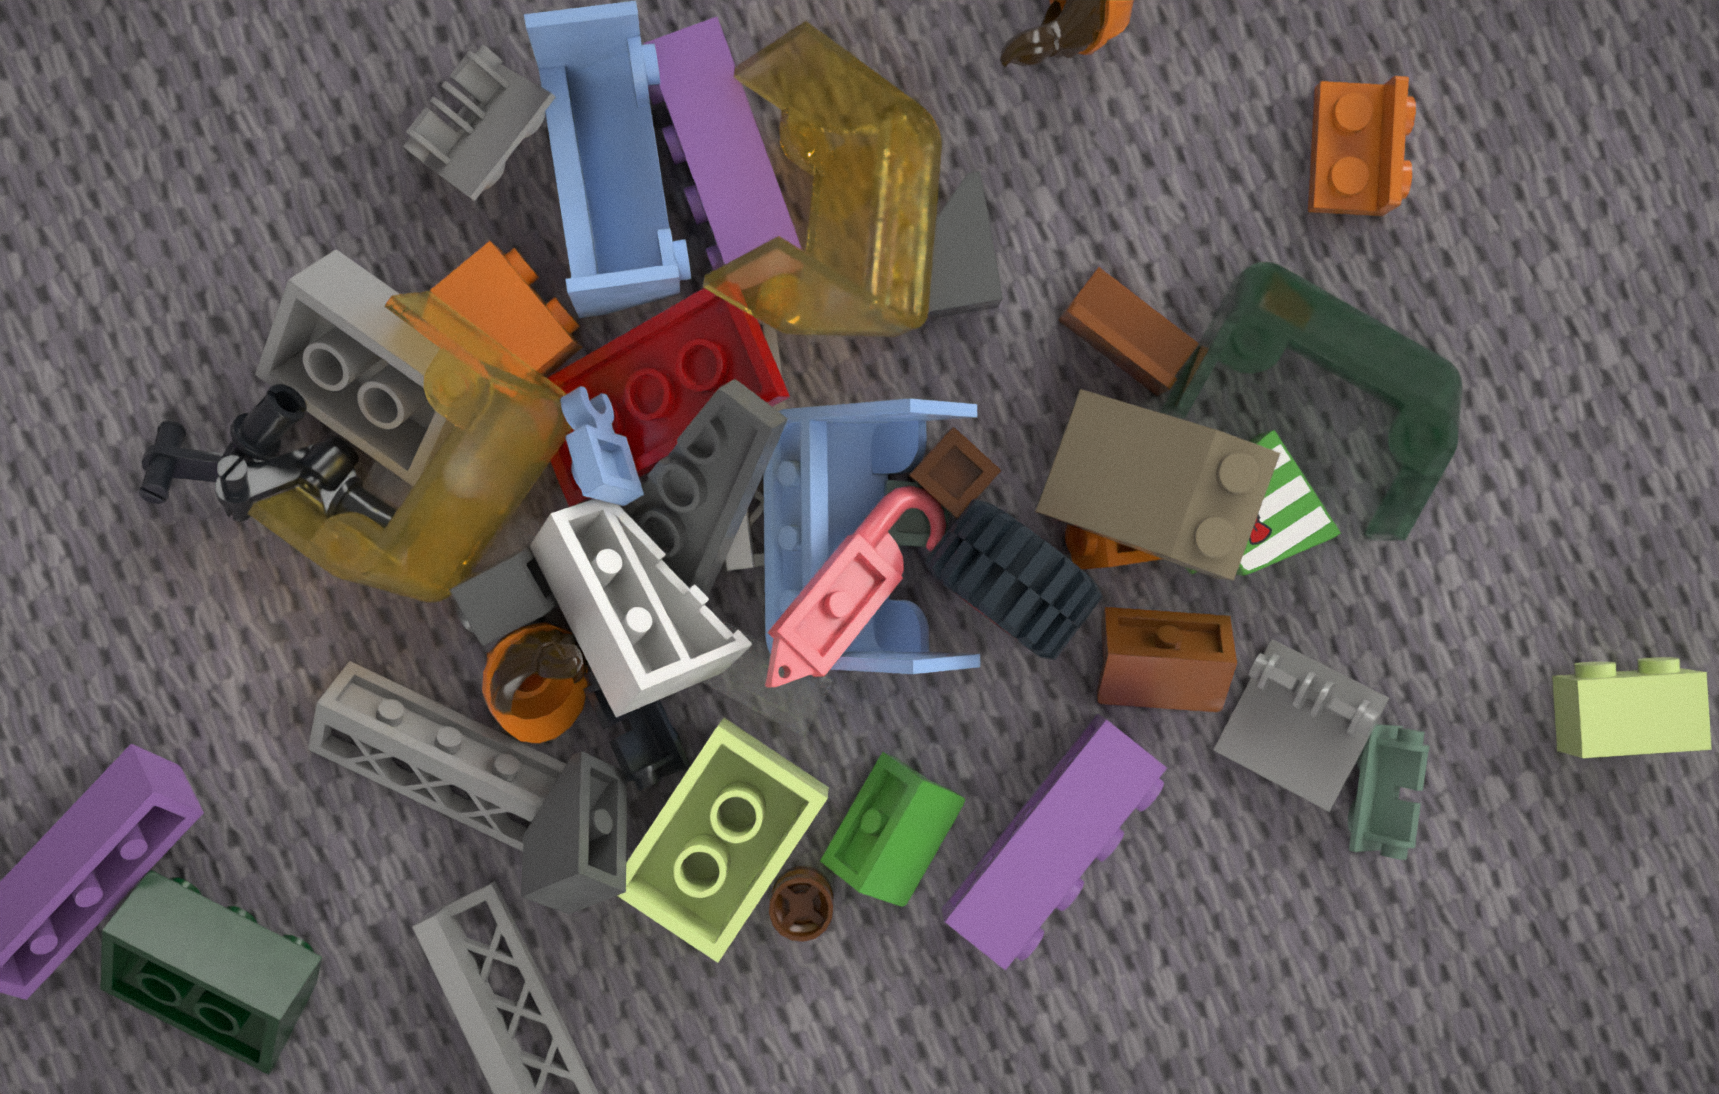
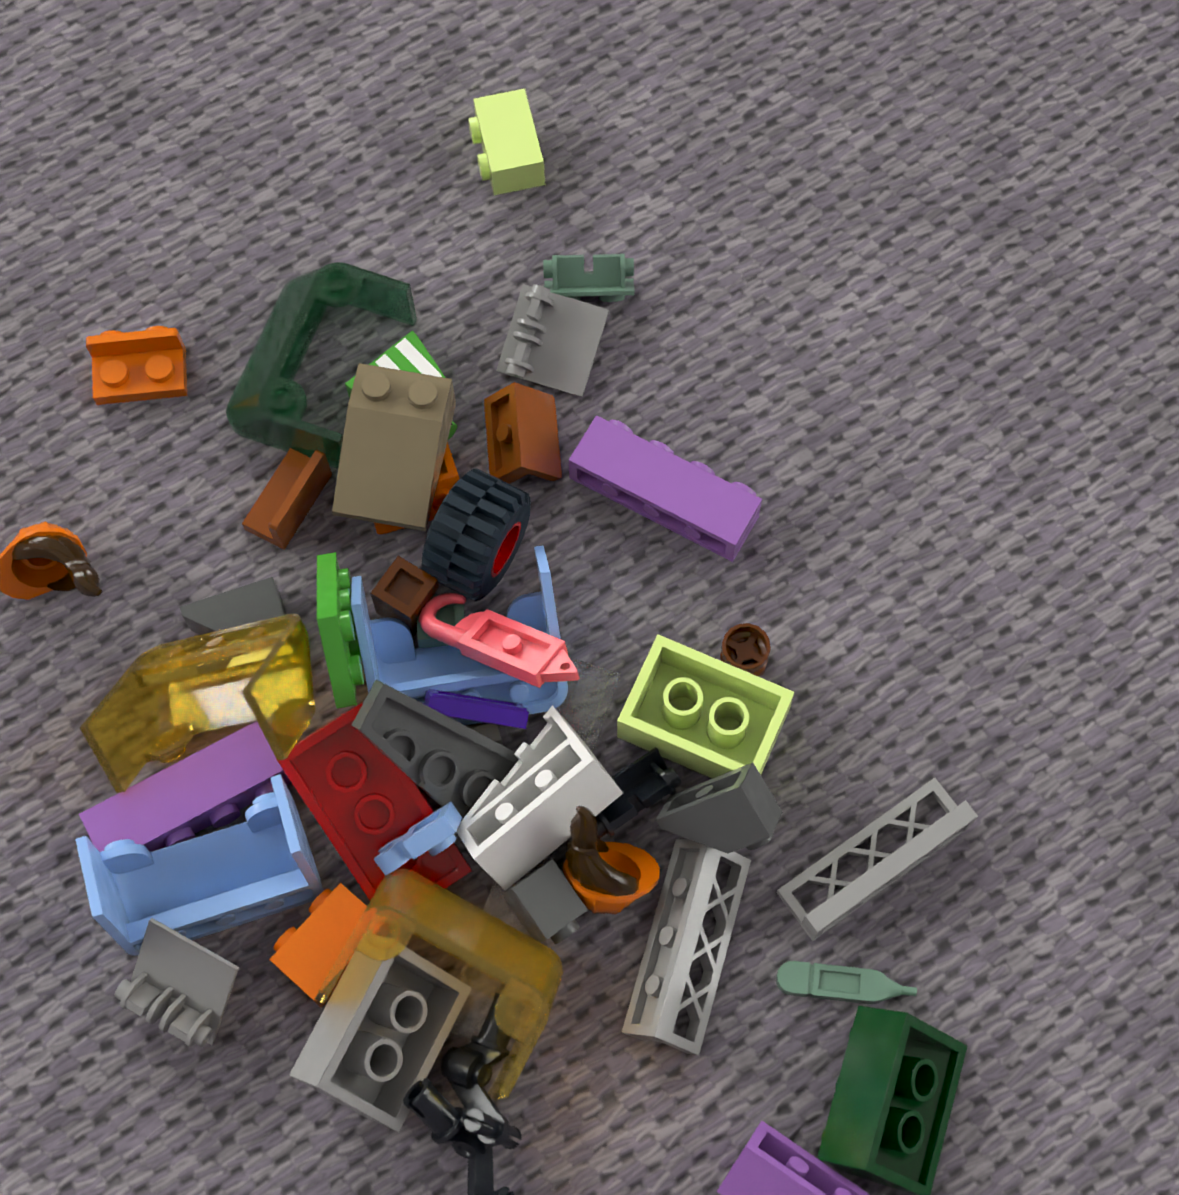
camera: 100 degrees left, 20 degrees down
(367, 934) = (838, 983): none -> sand green piece
(765, 543) = (477, 708): none -> dark purple tile
(886, 374) = (338, 630): none -> bright green plate
(892, 831) = (678, 602): bright green panel -> none

